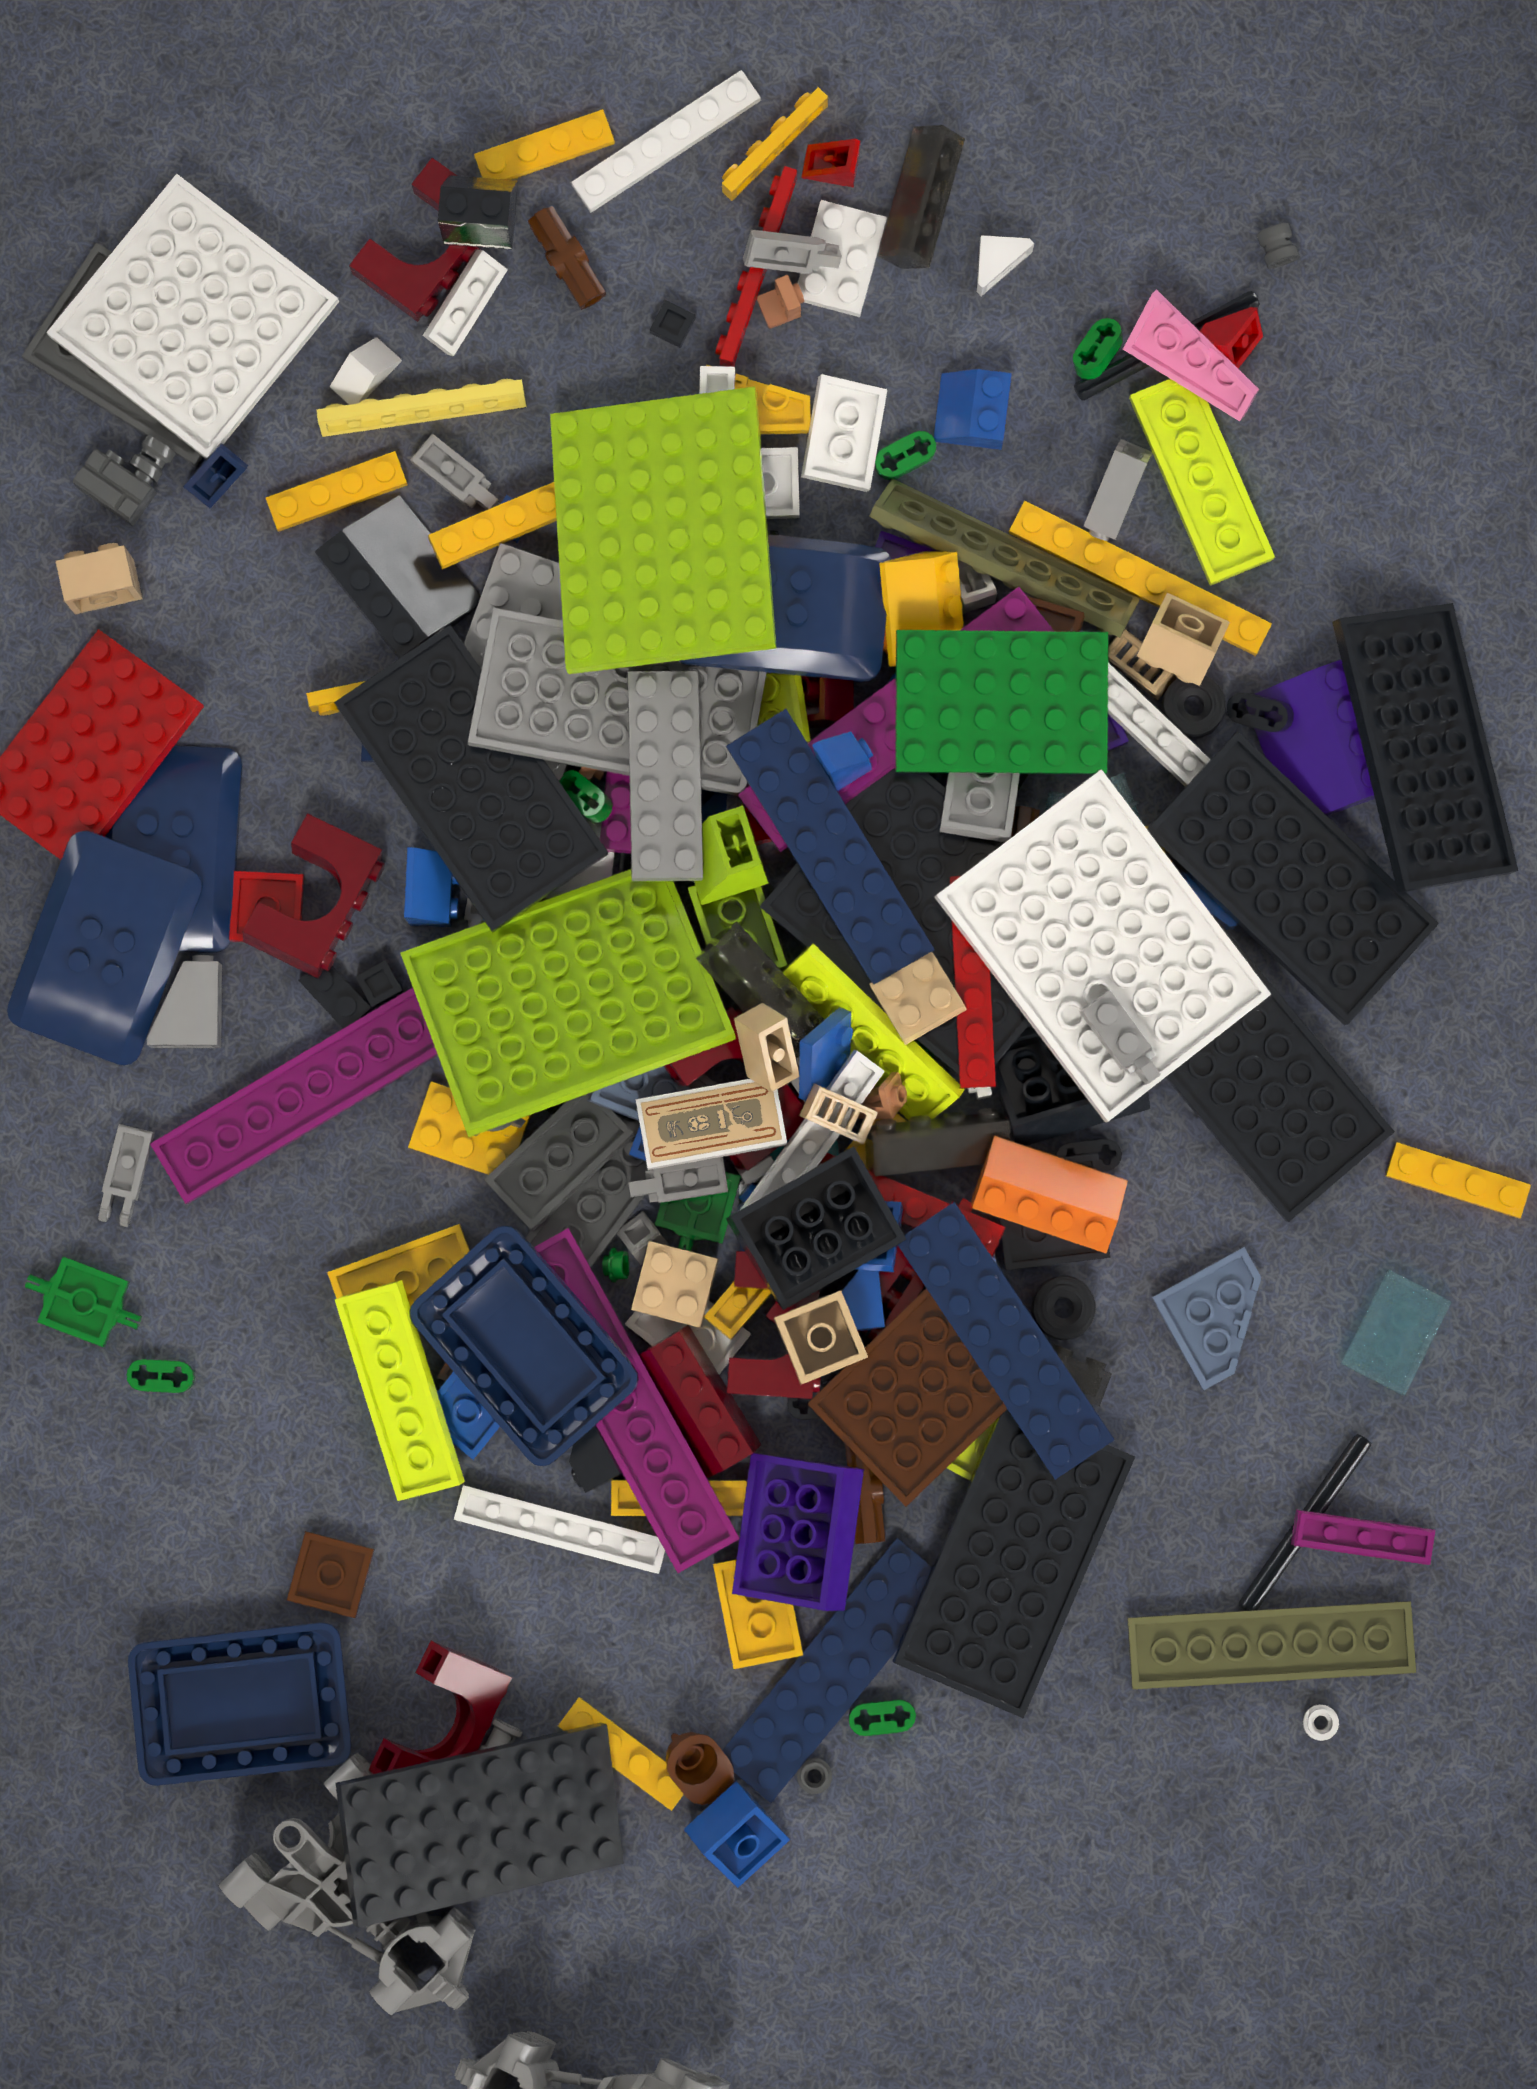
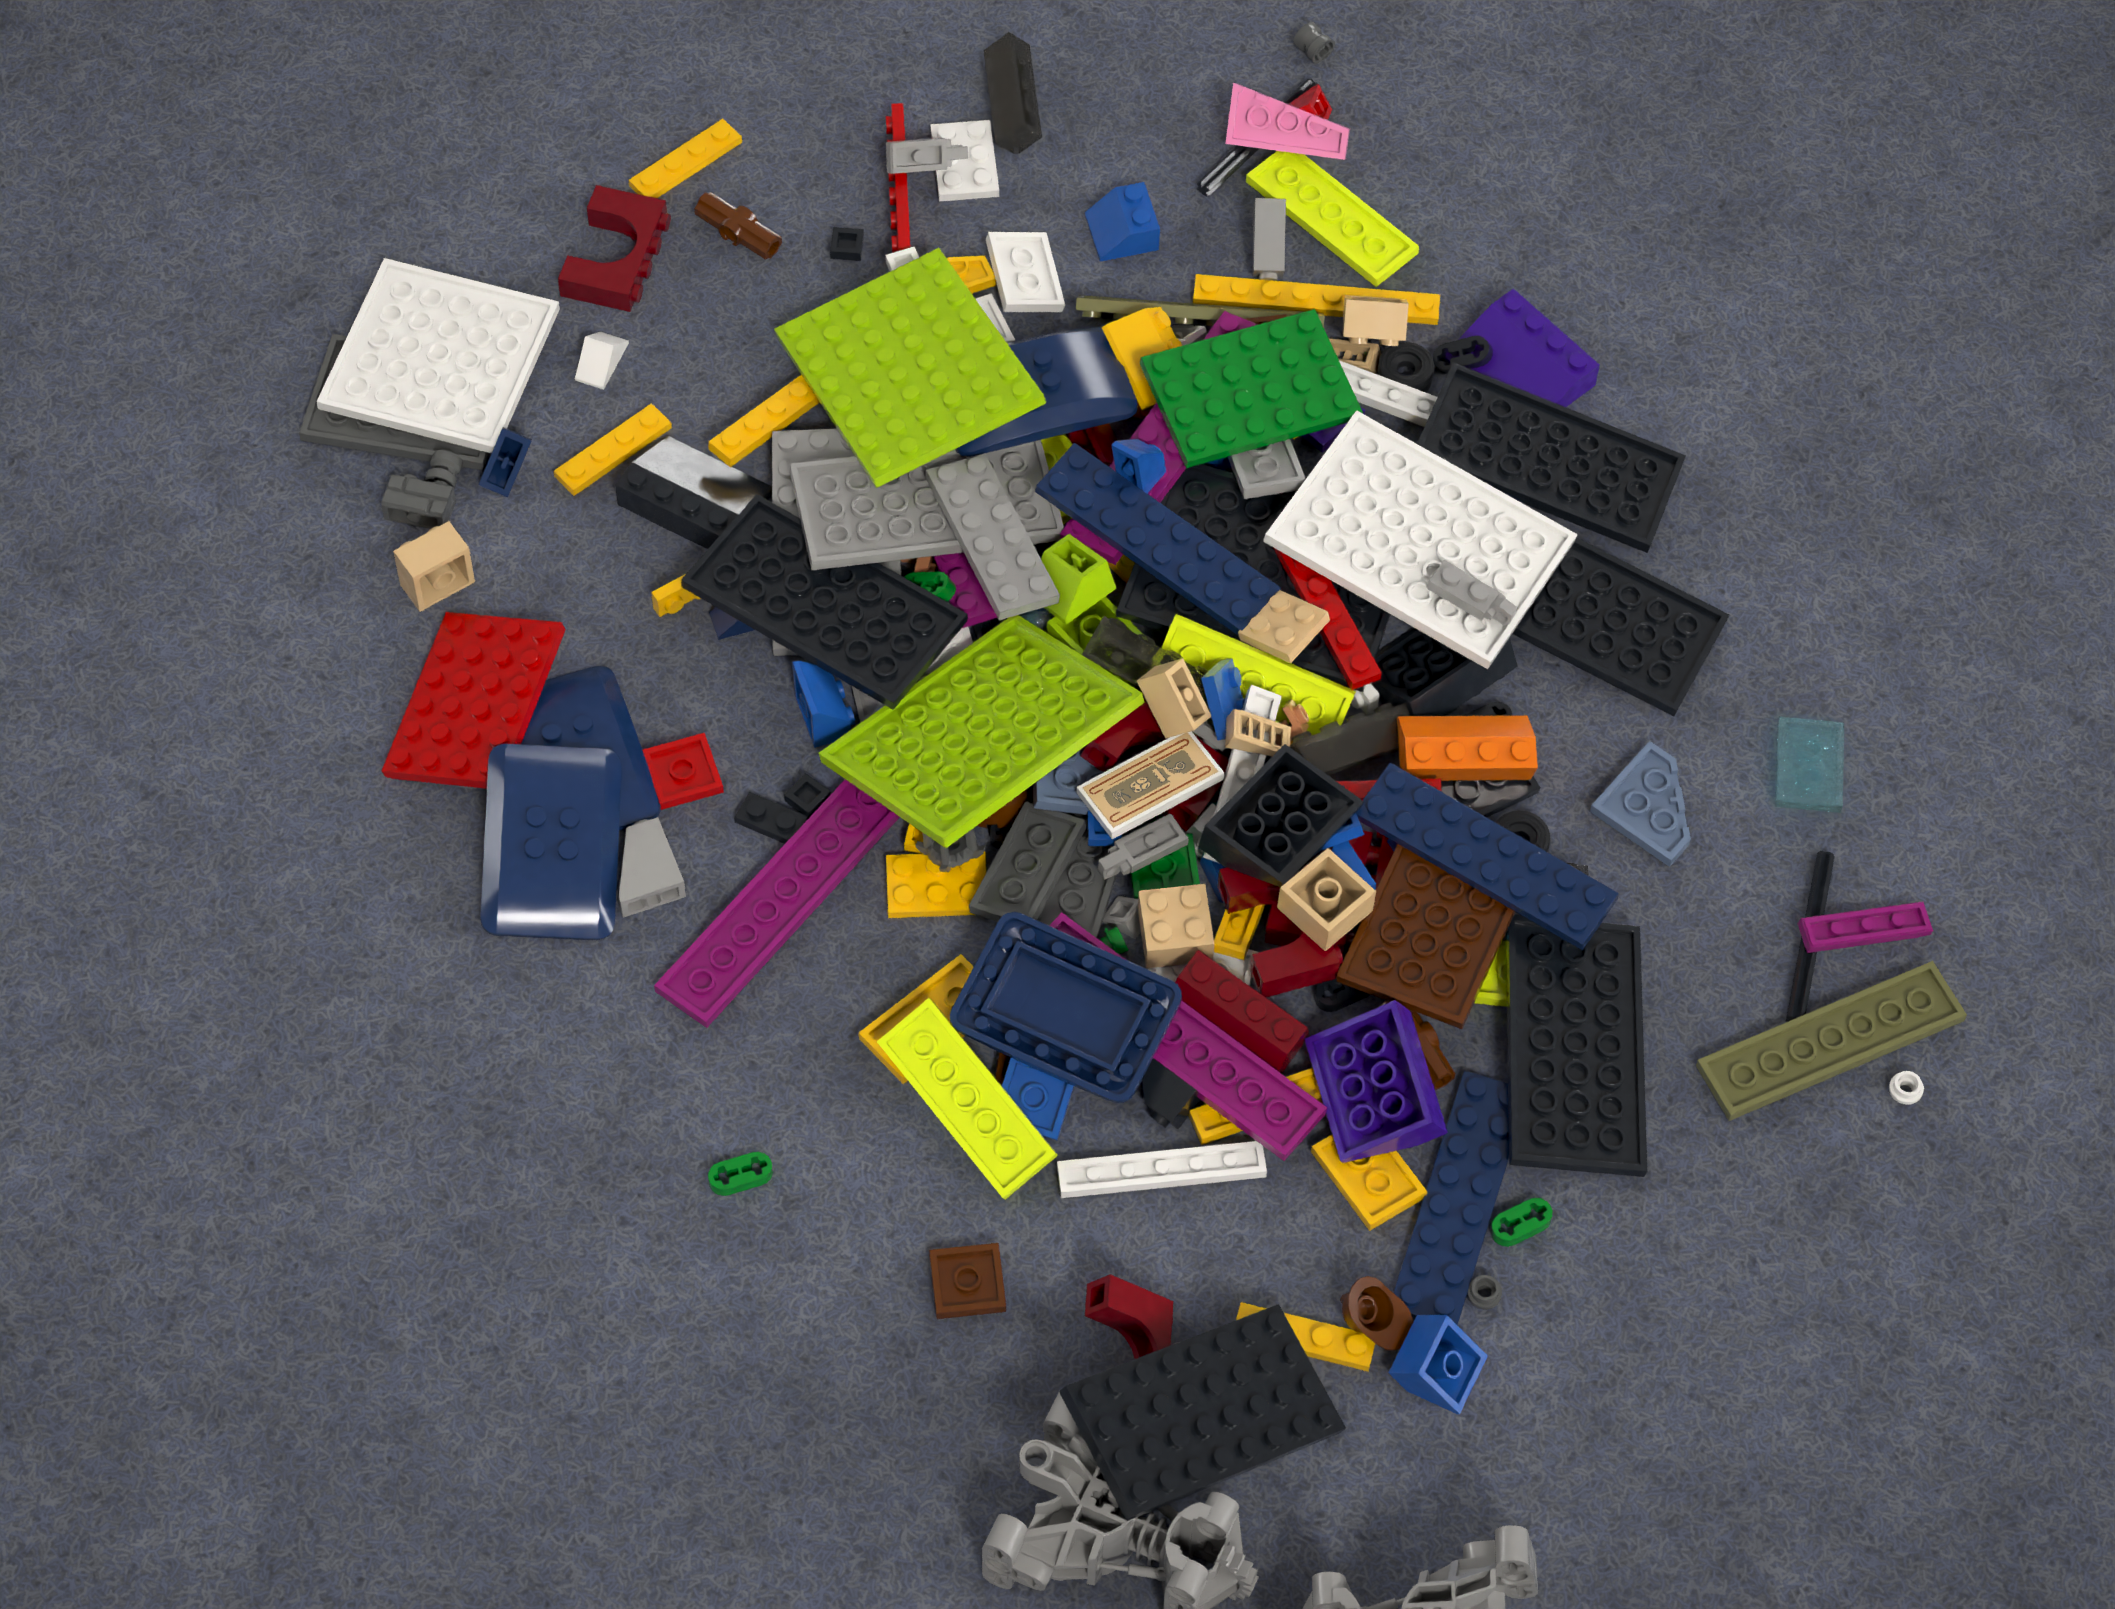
camera: 25 degrees left, 25 degrees down
(83, 1302) = (644, 1135): green plate -> none
(125, 1171) = (640, 1017): light grey hinge -> none
(239, 1704) = (930, 1413): dark blue wedge -> none
(312, 943) = (731, 774): dark red arch -> none
(419, 408) = (661, 364): light yellow plate -> none
(454, 473) = (707, 402): light grey hinge -> none
(465, 302) = (666, 281): white plate -> none
(477, 211) = (654, 198): black slope -> none
(666, 141) = (783, 126): white plate -> none
(781, 303) = (933, 199): nougat bracket -> none
(783, 133) = (877, 94): yellow plate -> none
(832, 162) = (930, 94): red slope -> none
(900, 448) = (1078, 272): green beam -> none
(998, 258) = (1094, 117): white slope -> none
(1101, 350) = (1204, 153): green beam -> none
(1425, 747) = (1610, 330): black plate -> none
(1458, 1180) = (1800, 637): yellow plate -> none

